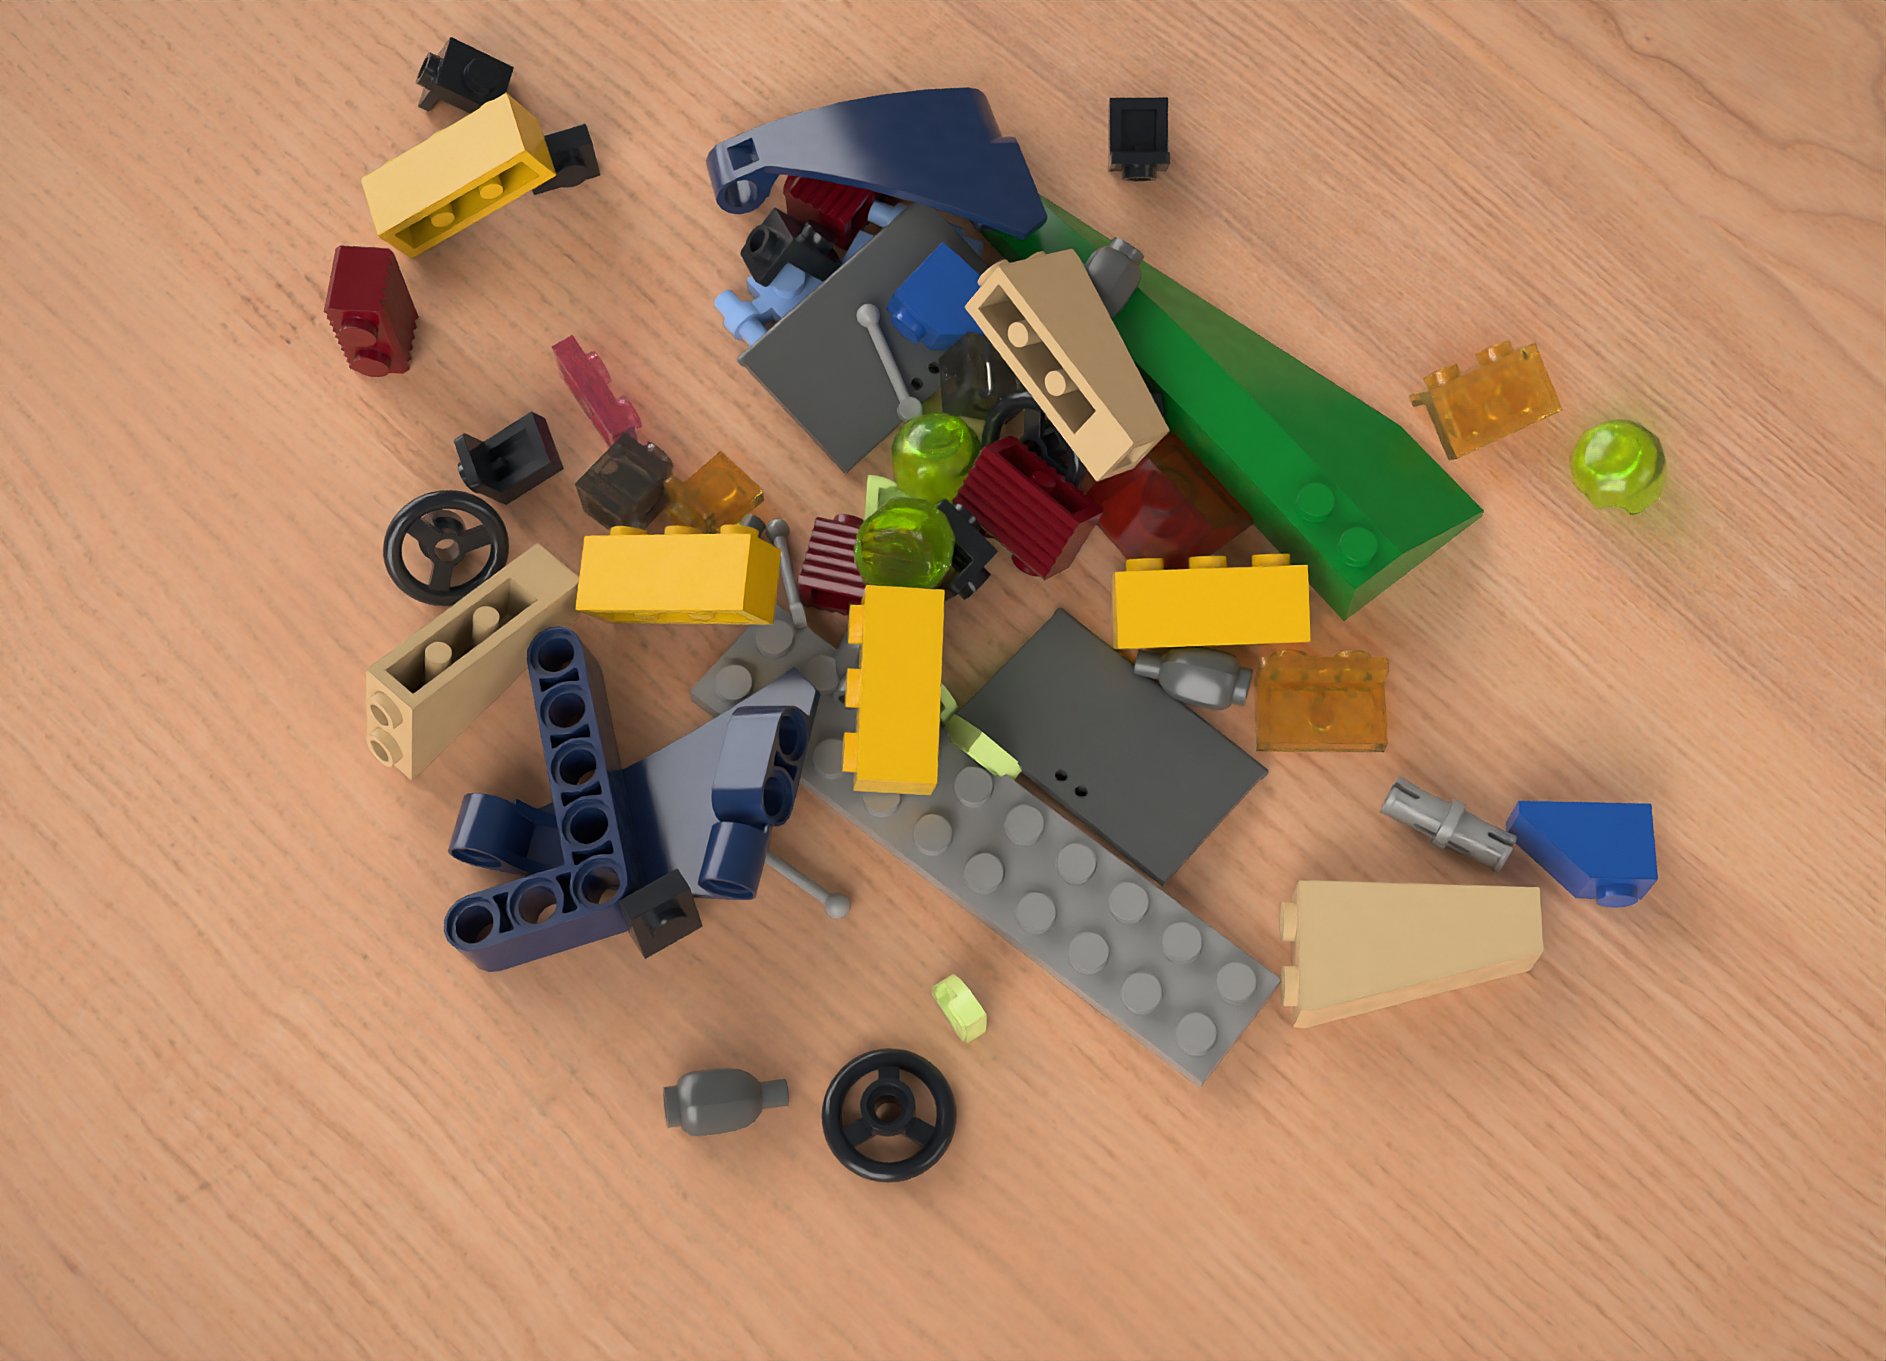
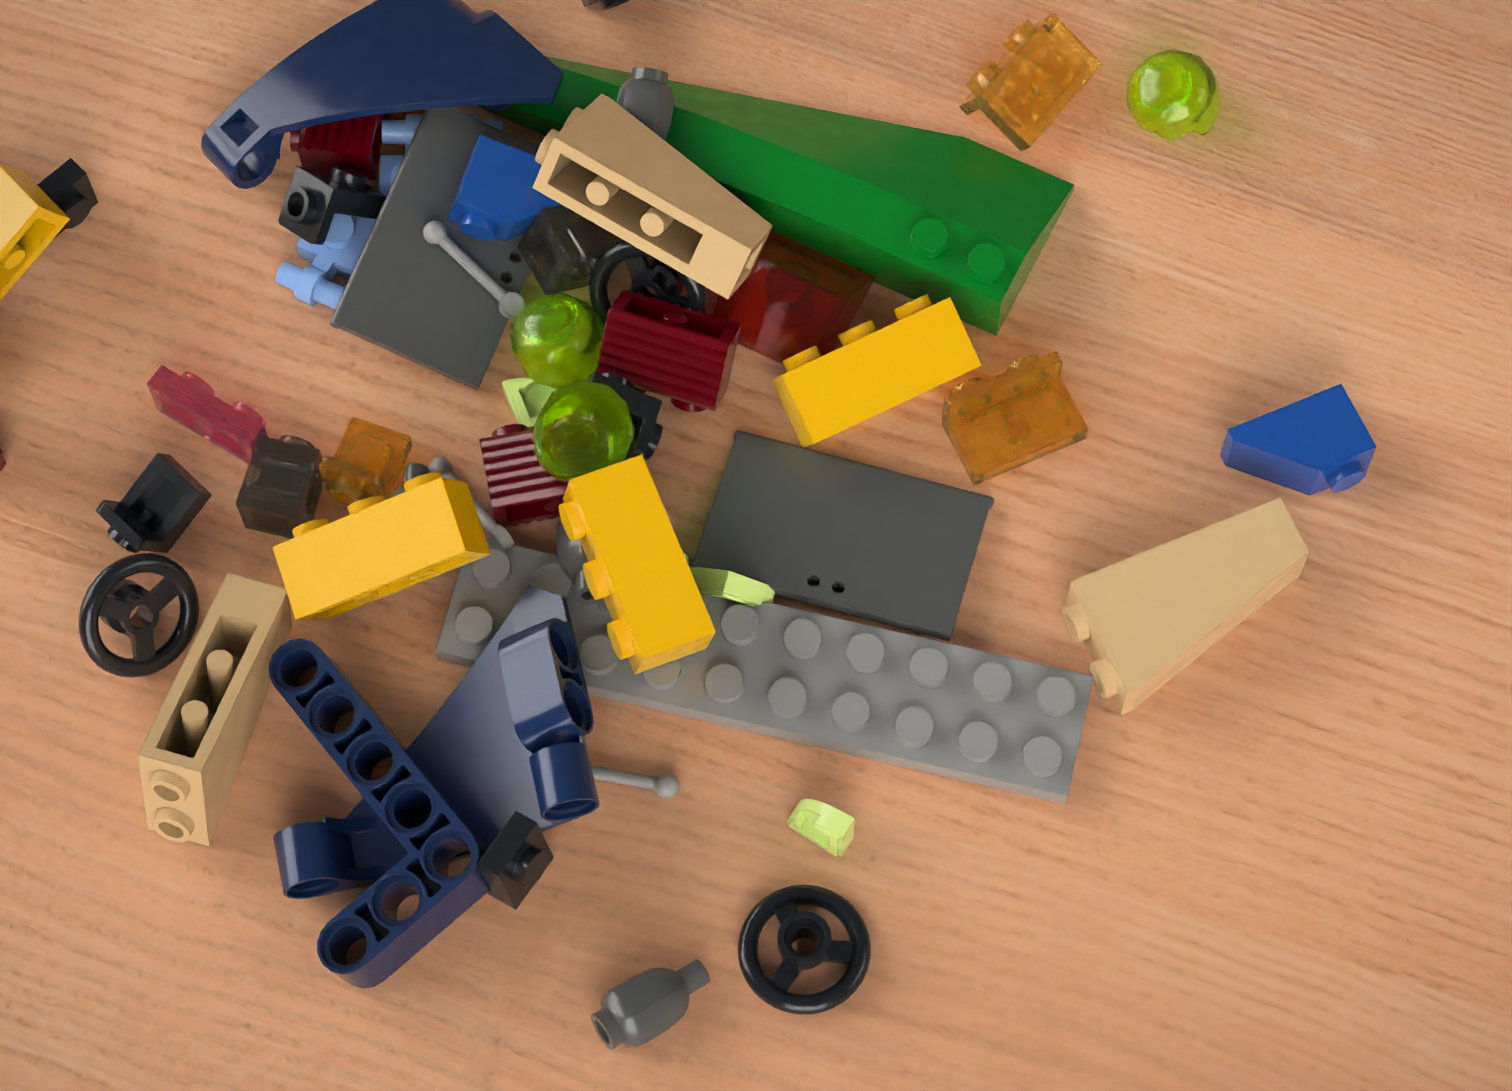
camera: 25 degrees left, 0 degrees up
(1198, 675) = (893, 439): dark grey plant -> none
(1448, 824) = (1173, 477): light grey pin -> none

